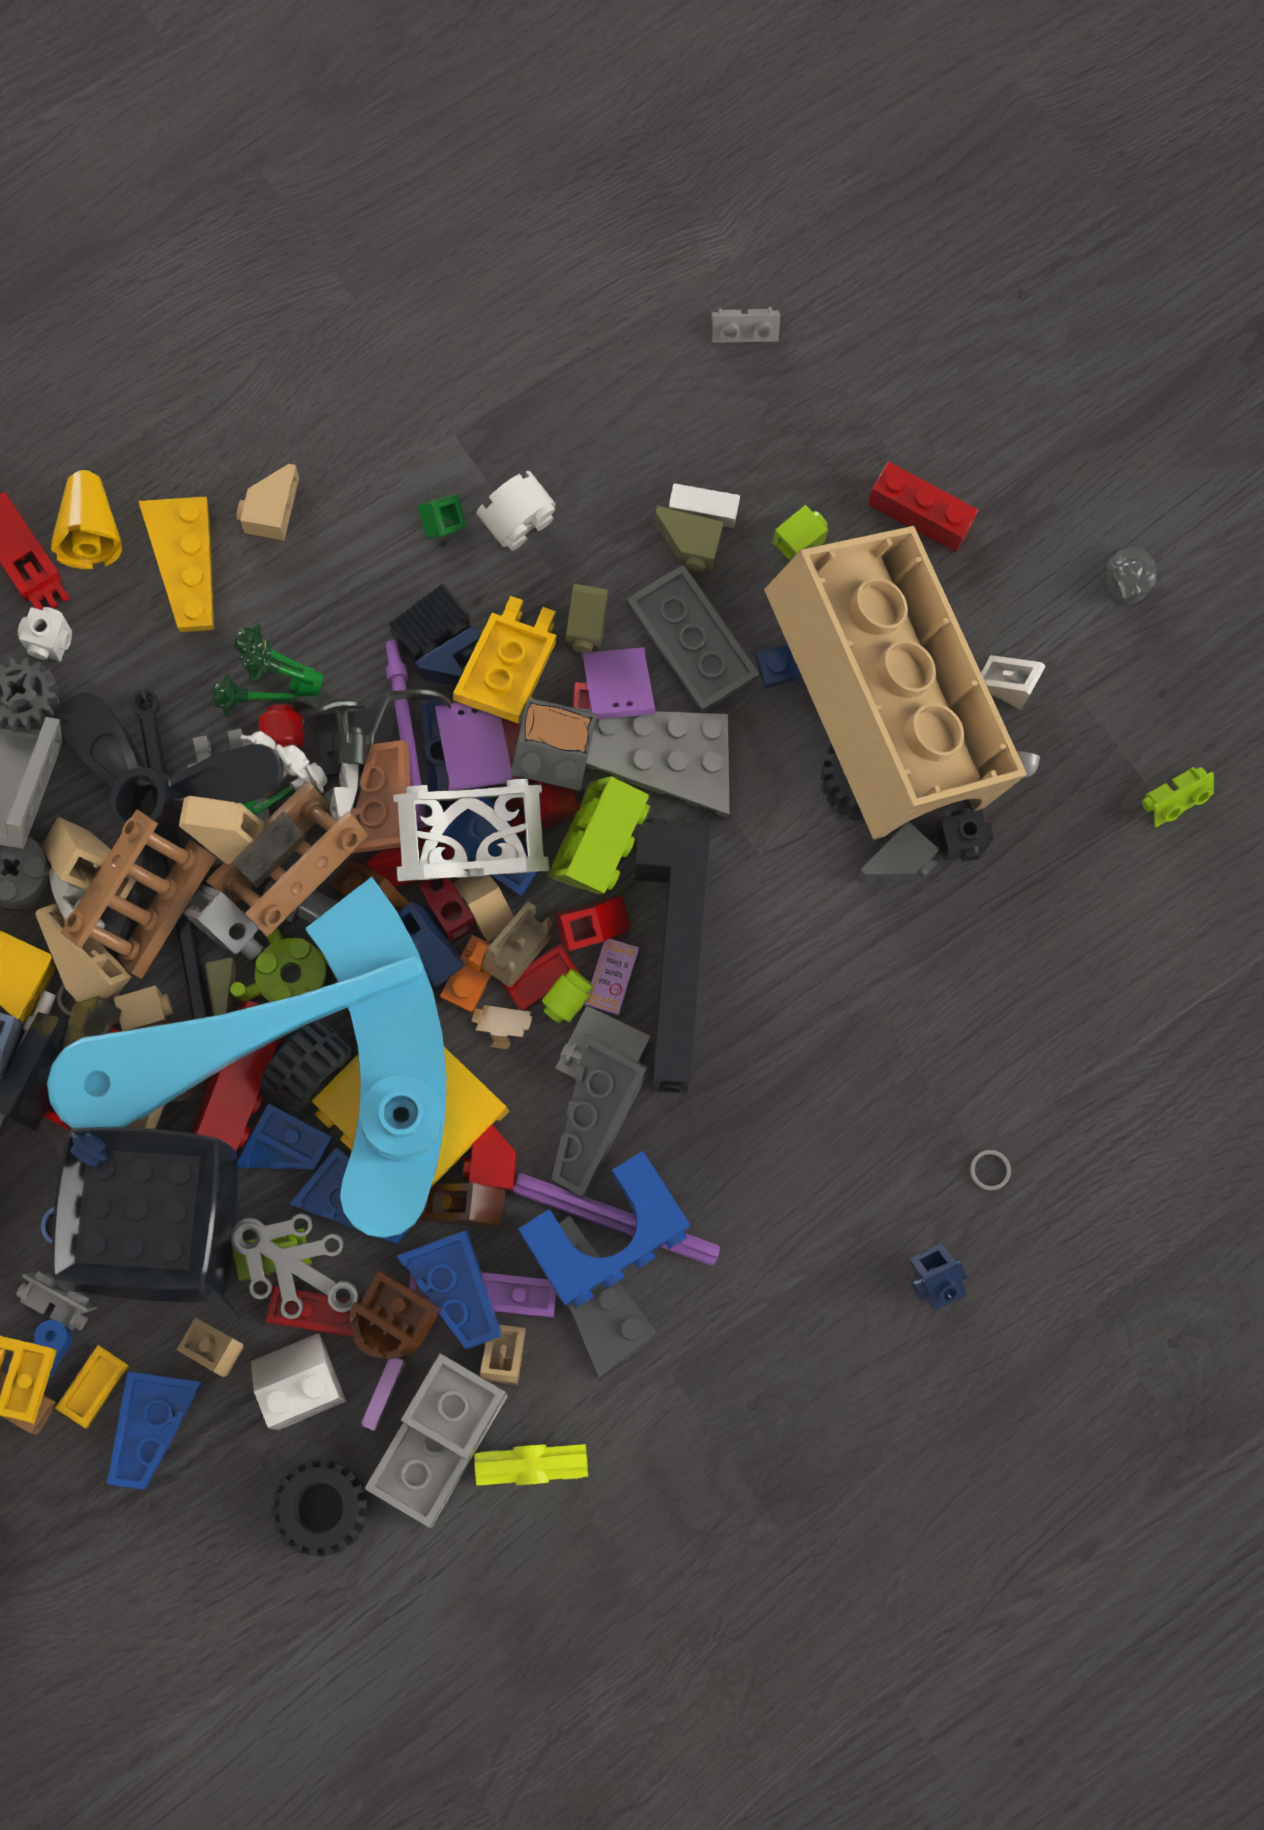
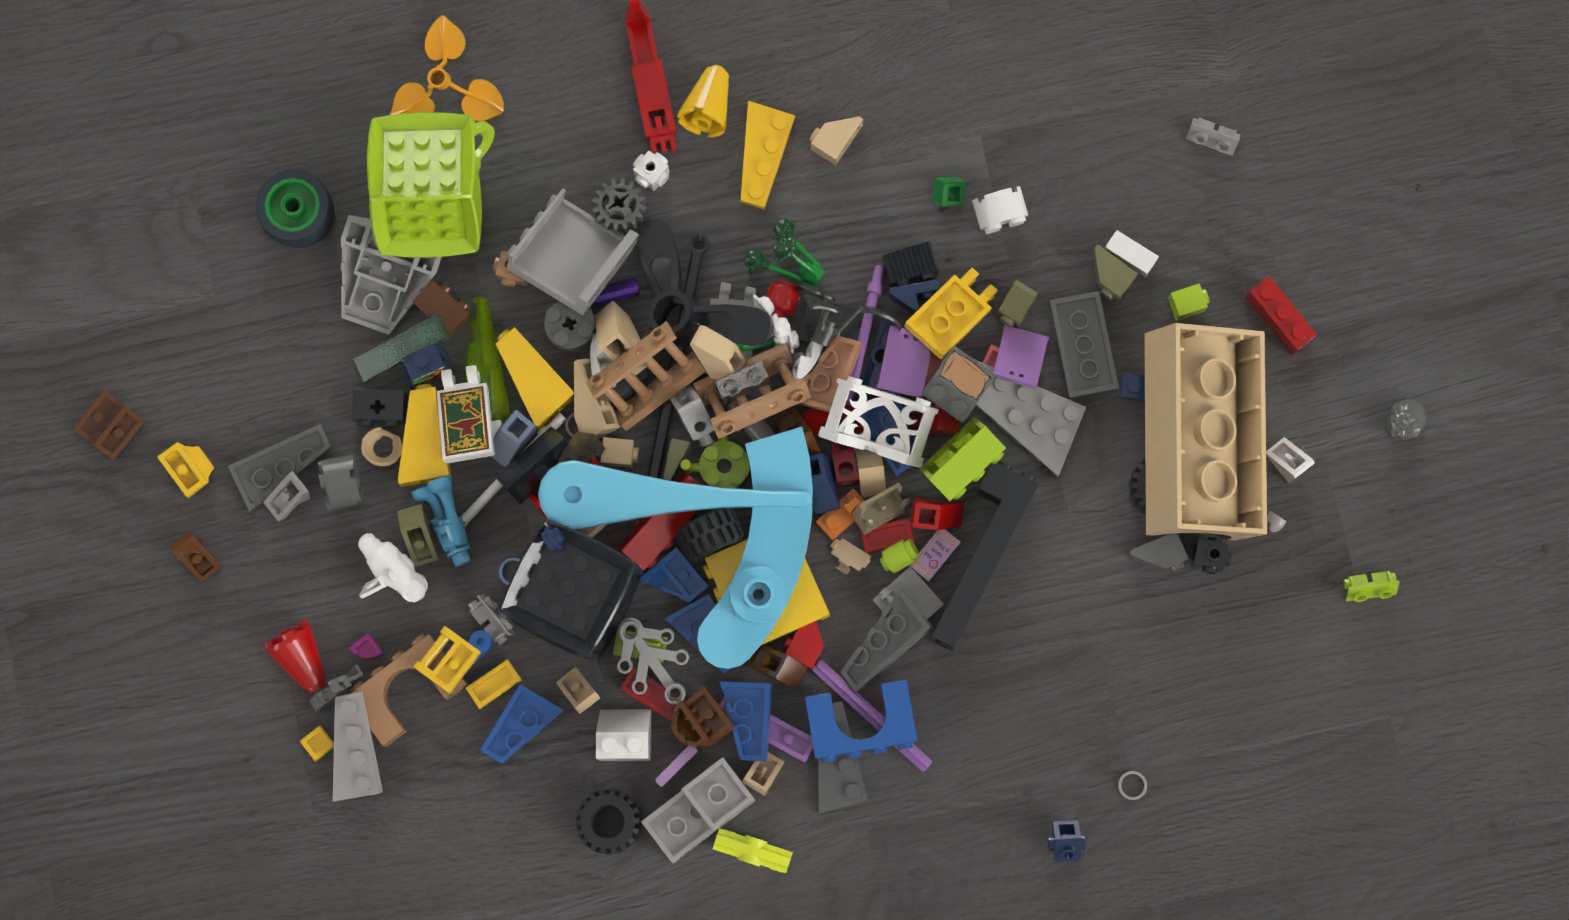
camera: 30 degrees right, 5 degrees up
(60, 805) = (617, 291): none -> dark purple slope

